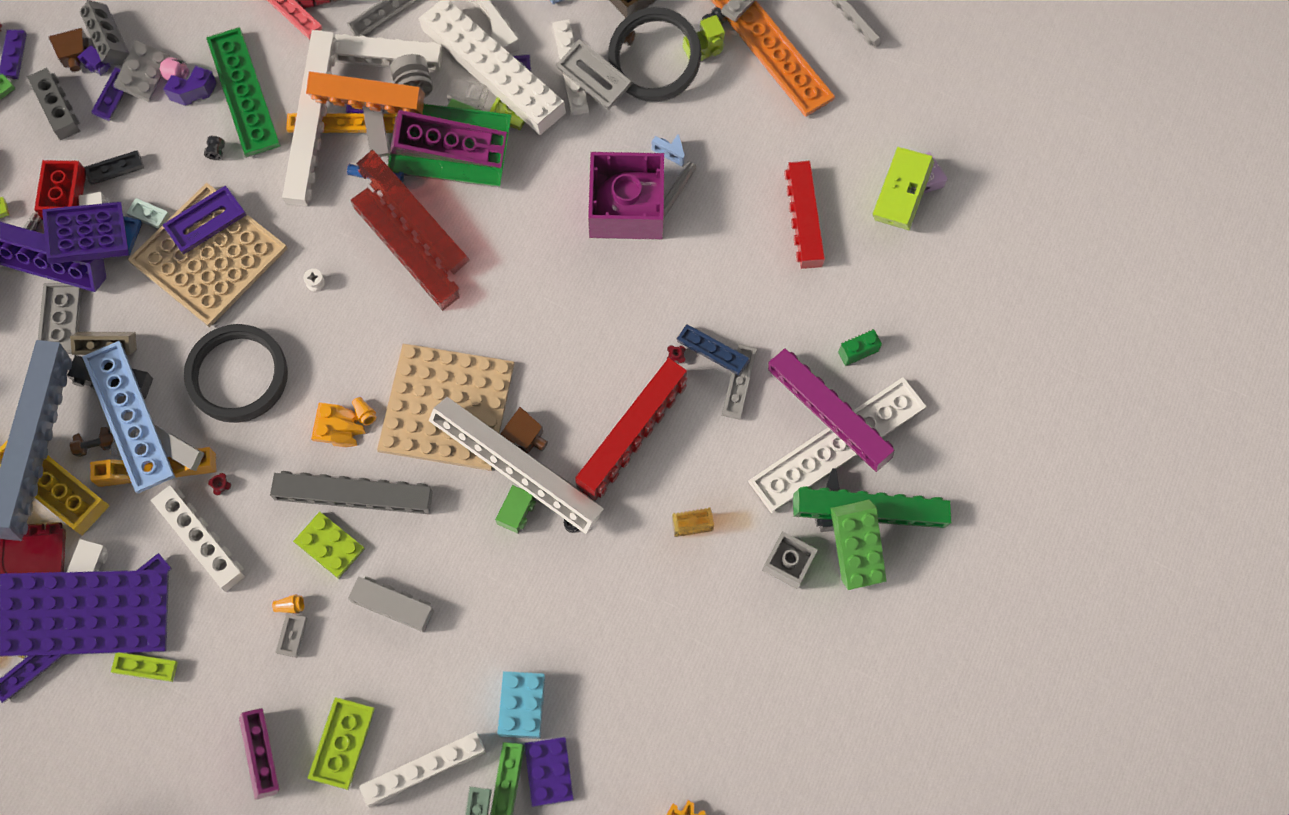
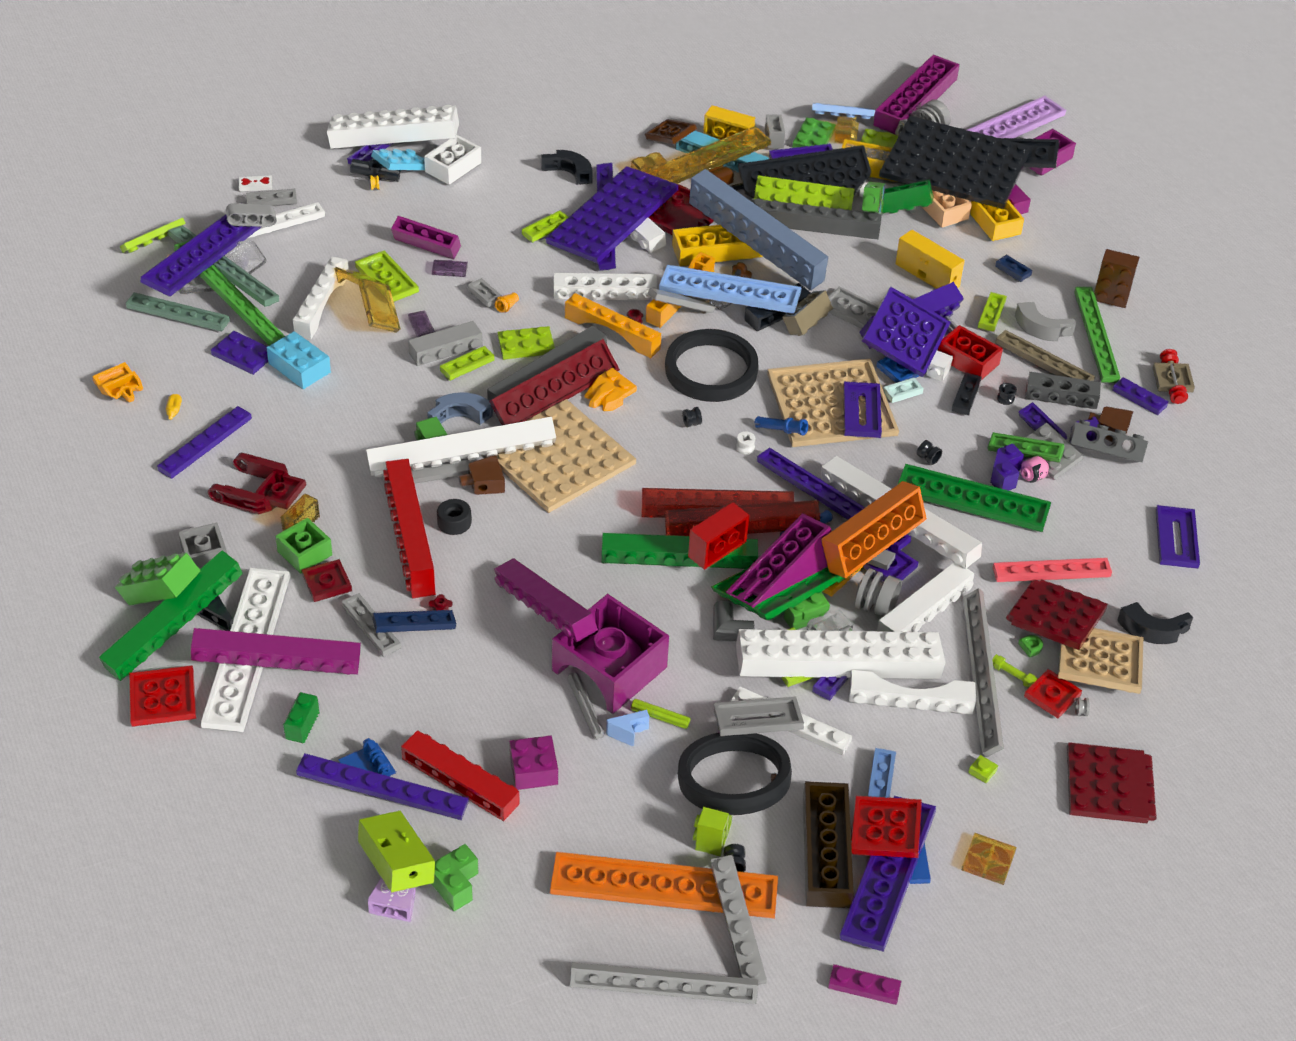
camera: 130 degrees right, 25 degrees down
(16, 724) = (570, 162): none -> black arch
(19, 140) = (1040, 357): none -> dark tan plate
(85, 138) = (1006, 393): none -> black wheel
(154, 85) = (1029, 447): none -> bright green tile
(249, 505) = (642, 338): none -> light orange arch
(274, 253) = (788, 425): none -> blue pin
(279, 701) = (449, 268): none -> clear purple plate
(317, 338) = (692, 417): none -> black wheel
(329, 183) = (816, 488): none -> dark purple plate
(364, 412) = (603, 408): light orange cone -> none
(372, 464) = (554, 384): none -> dark red plate
(380, 652) = (420, 323): none -> clear purple plate
(383, 717) = (376, 299): none -> clear yellow windscreen
(400, 565) = (467, 363): none -> lime plate
(451, 511) = (464, 405): none -> sand blue arch
(457, 197) = (718, 535): none -> red brick
(479, 238) = (667, 551): none -> green brick
(522, 159) = (724, 624): none -> dark grey brick
(586, 405) = (454, 516): none -> black tyre
(627, 260) = (545, 599): none -> magenta brick
(636, 136) = (661, 713): none -> lime axle
(664, 760) = (173, 405): none -> yellow piece
(678, 689) = (204, 442): none -> dark purple plate
(682, 566) = (276, 491): none -> dark red plate
(718, 490) = (303, 545): none -> bright green brick
(729, 449) = (326, 580): none -> dark red plate
(754, 178) = (533, 762): none -> magenta brick
(850, 277) = (370, 759): none -> blue hinge
(859, 253) = (382, 786): none -> dark purple plate
(878, 156) = (452, 876): none -> bright green brick
(929, 457) = (162, 696): none -> red plate

